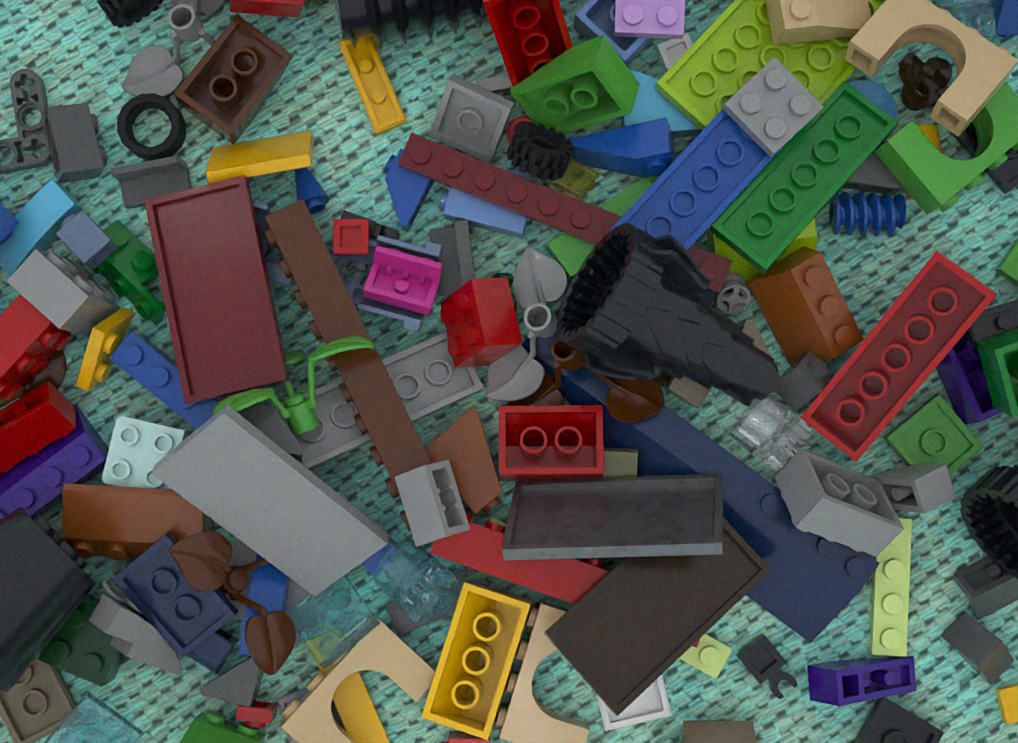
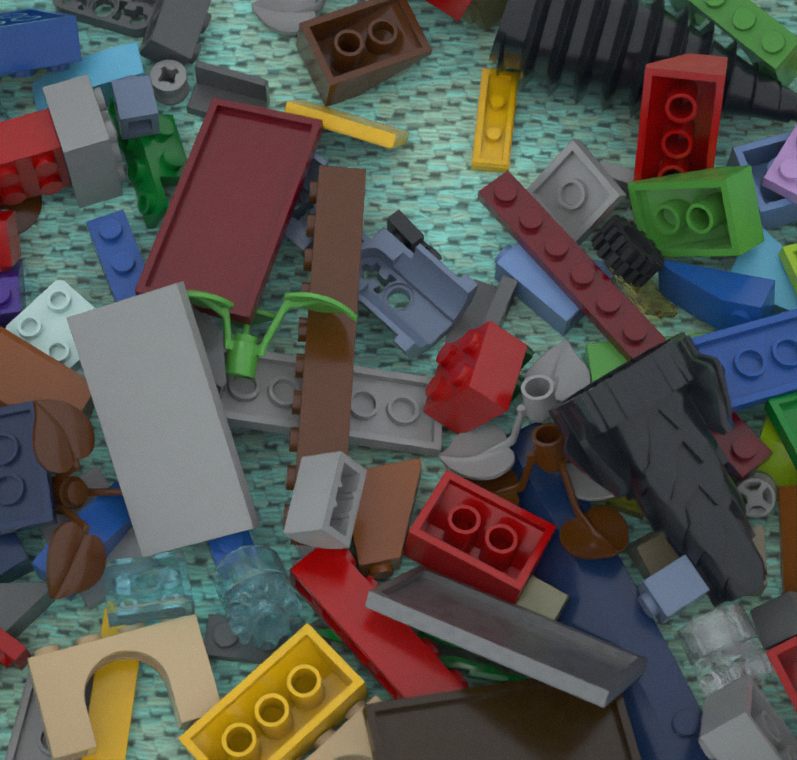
camera: 25 degrees right, 20 degrees down
(103, 341) = (70, 224): yellow wing -> none
(105, 197) = (165, 91): none -> light grey wheel
(130, 112) = (259, 27): black tyre -> none
(310, 191) = (377, 184): blue cone -> none
(351, 237) = (391, 233): red plate -> none
(403, 280) = (420, 299): dark pink bracket -> none
(406, 190) = (472, 230): blue slope -> none
(713, 414) = (671, 590): none -> sand blue brick

